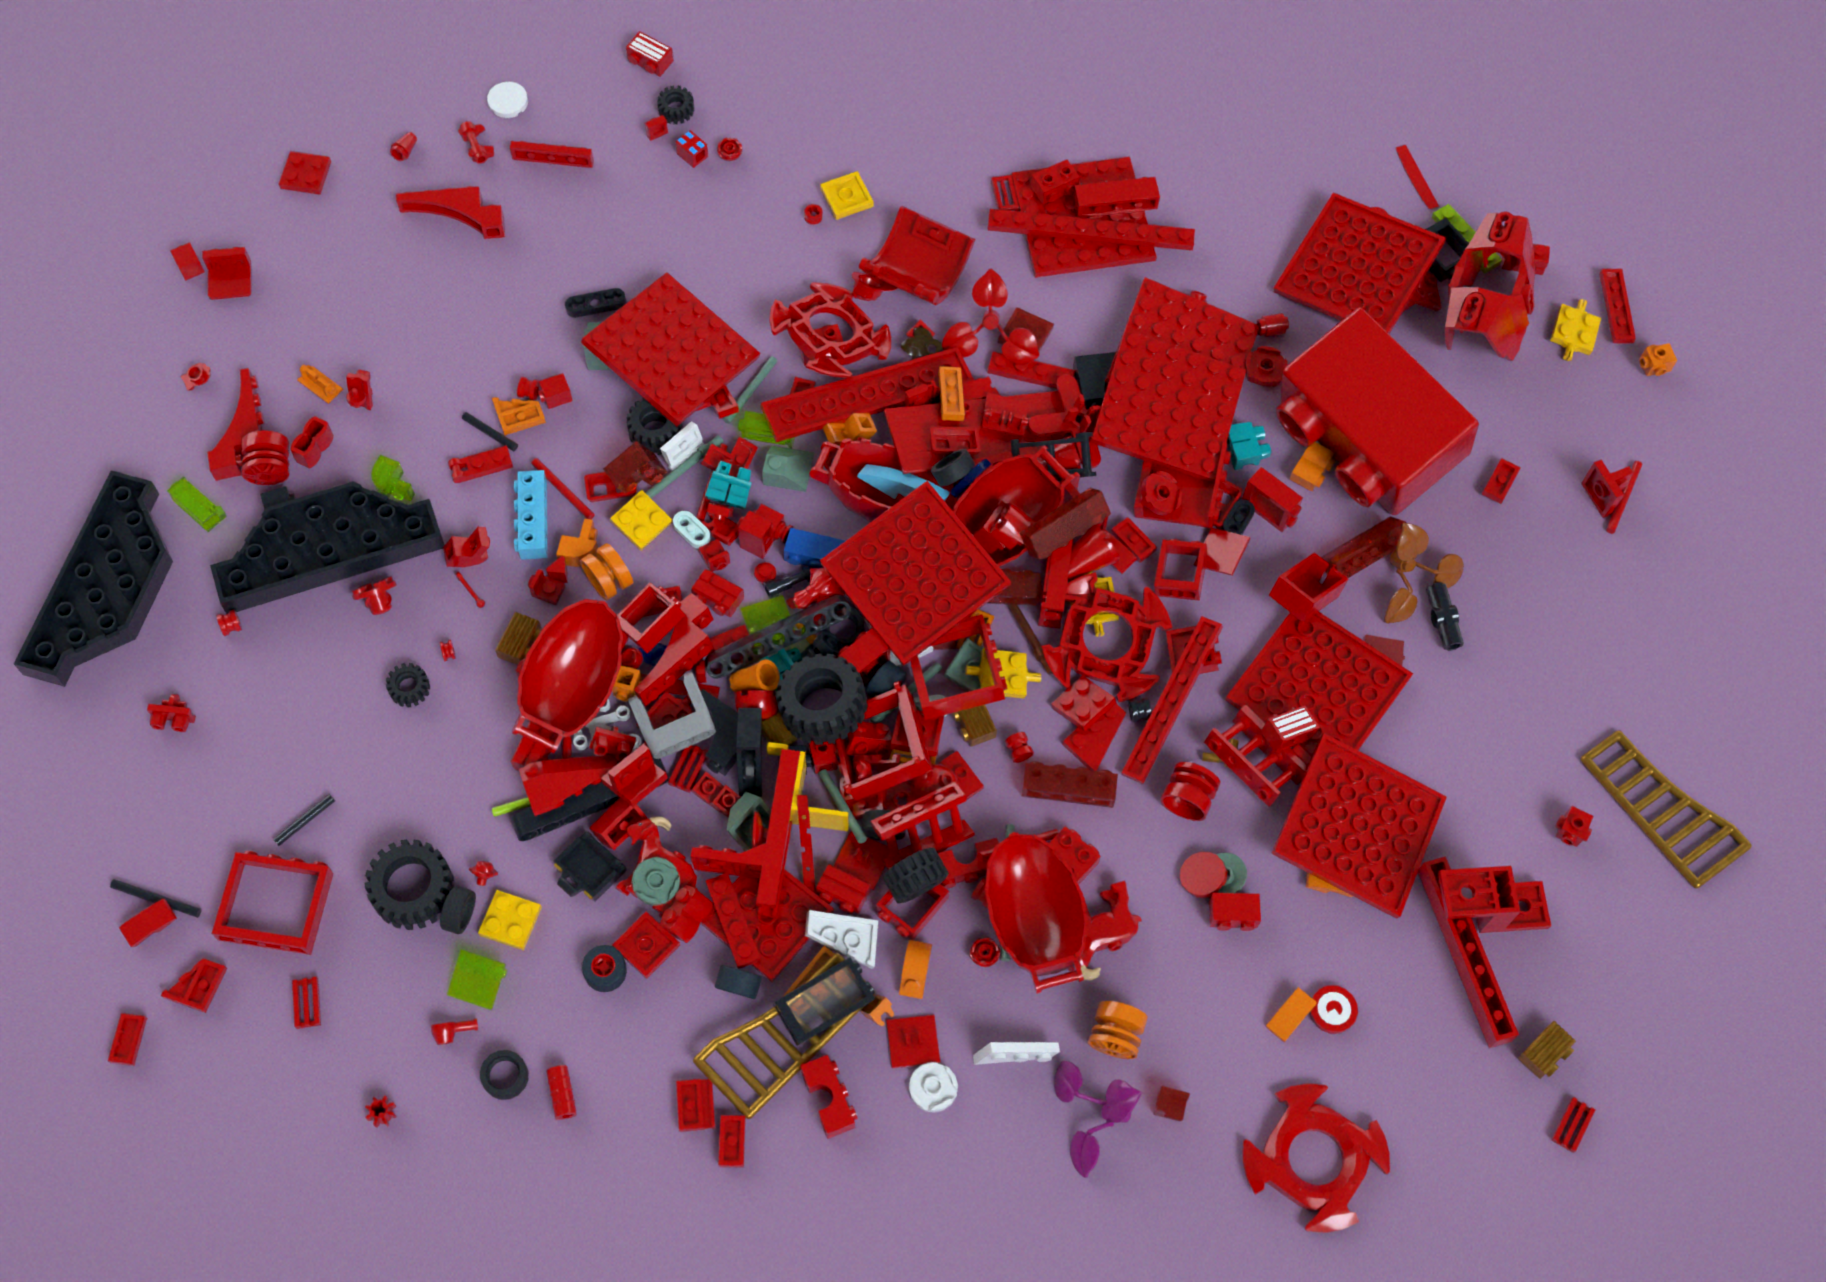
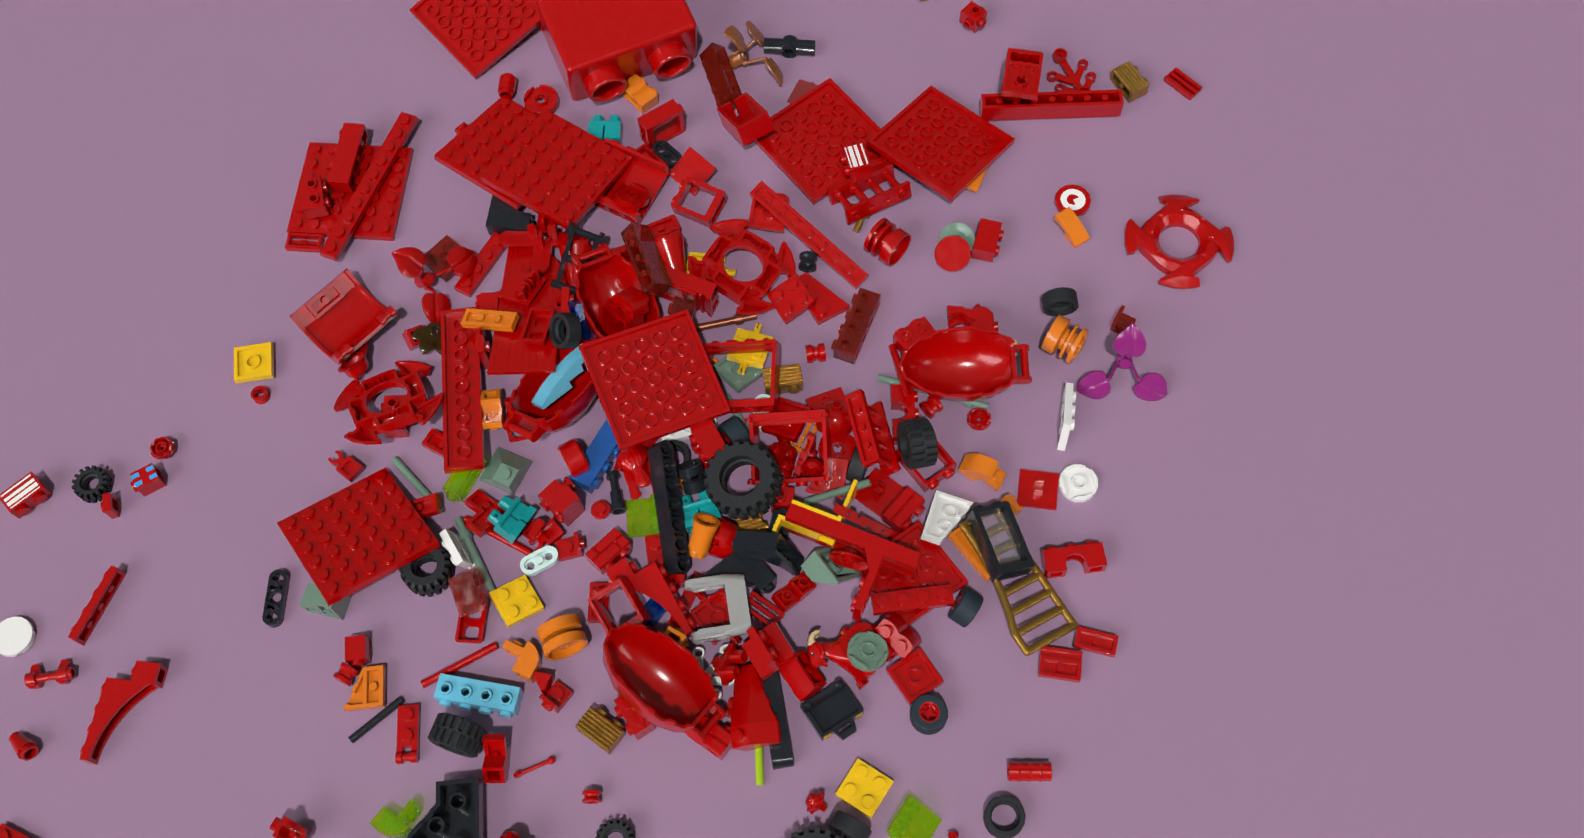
camera: 70 degrees left, 0 degrees up
(481, 503) = (457, 735): none -> black tyre
(752, 318) = (346, 466): none -> red plate
(811, 521) = (573, 457): none -> red animal
(1171, 1015) = (1060, 301): none -> black tyre
(1527, 977) = (1072, 78): none -> red plant

